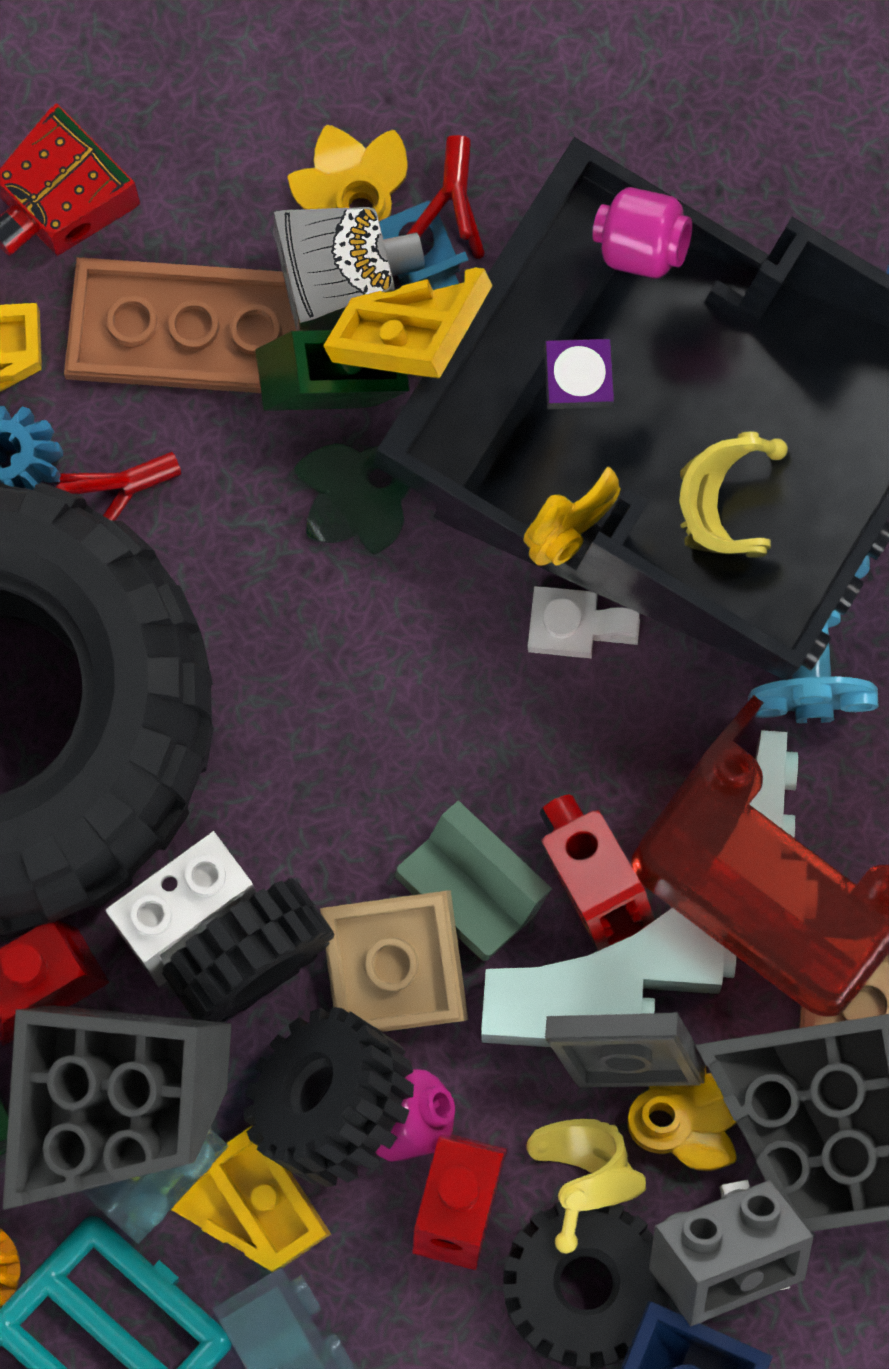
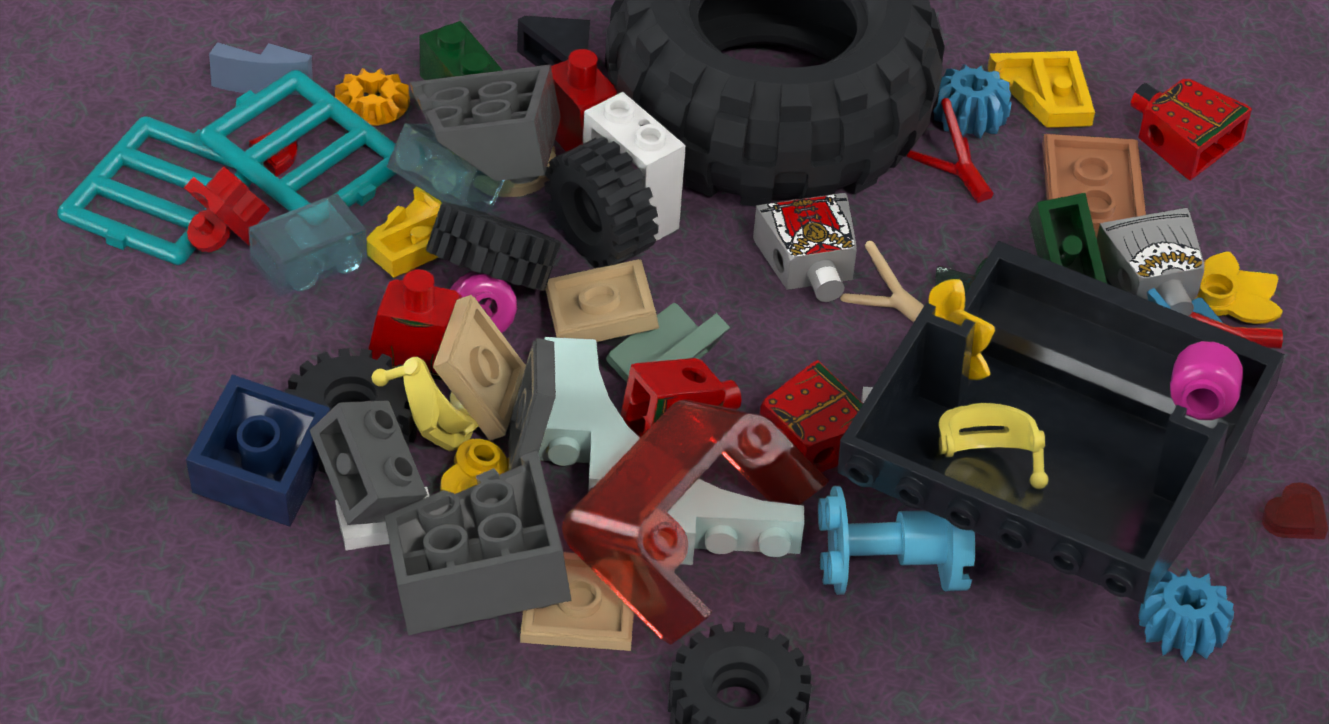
camera: 80 degrees right, 30 degrees down
(283, 689) = (809, 243): none -> torso
(344, 597) = (900, 298): none -> tan plant
(408, 328) = (1104, 253): yellow wing -> none
(535, 1116) = (480, 367): none -> tan tile
(578, 374) = (1080, 354): tile -> none
(600, 713) = (813, 413): none -> red torso
(717, 169) = (1296, 513): none -> clear red tile

